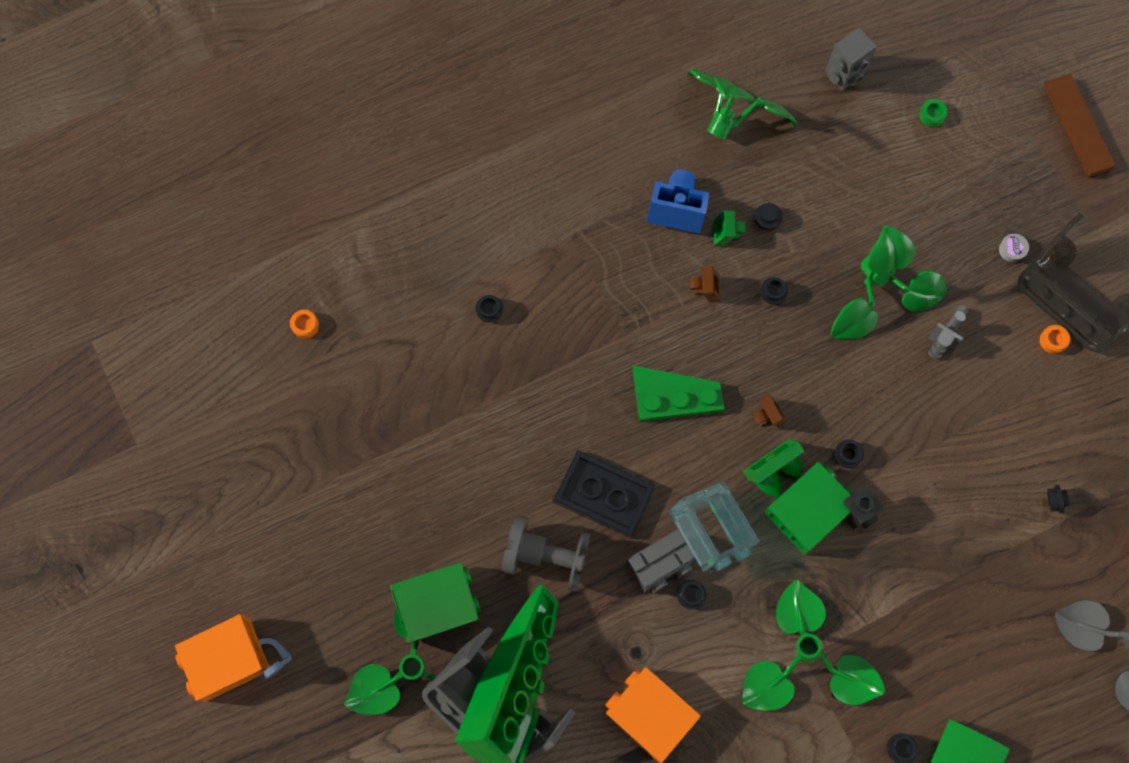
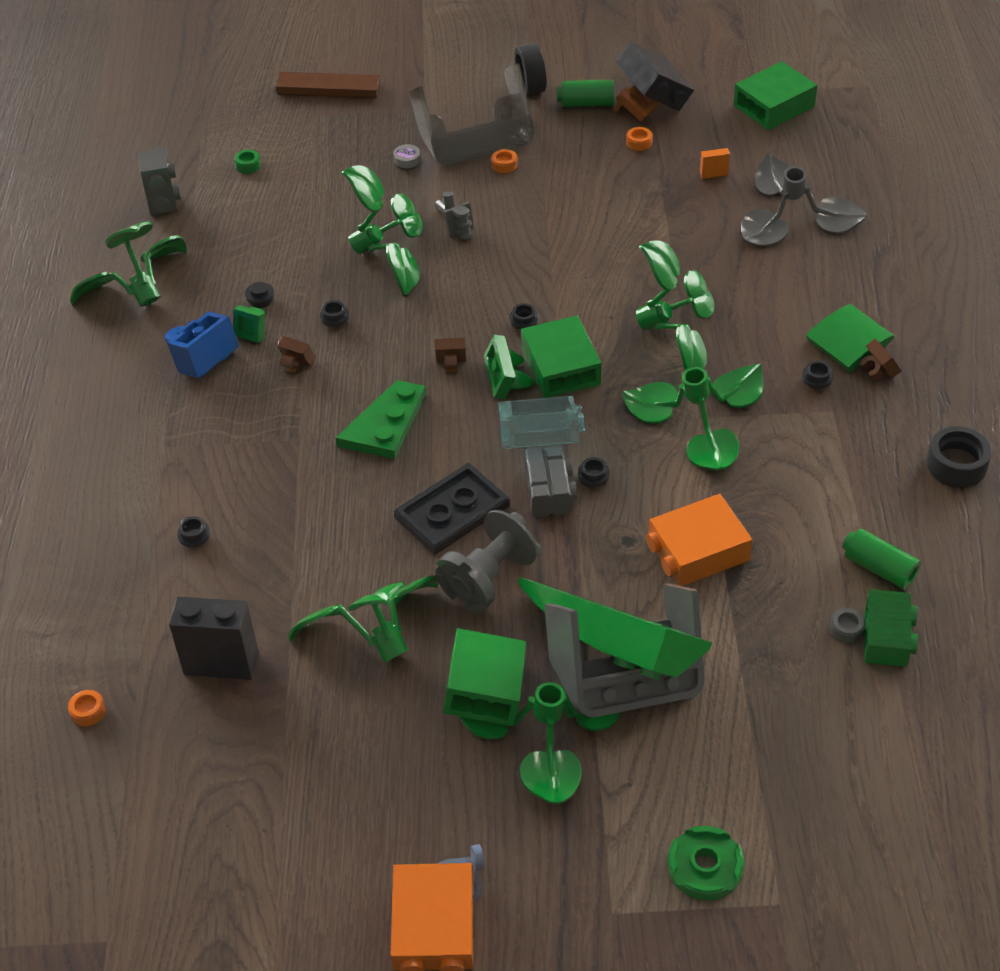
camera: 65 degrees left, 25 degrees down
(379, 385) = (214, 637): none -> black brick
(442, 503) = (386, 636): none -> green plant
(863, 507) = (583, 312): pearl dark grey bracket -> none
(916, 566) = (657, 313): none -> green plant
(1057, 499) = (645, 203): black plate -> none

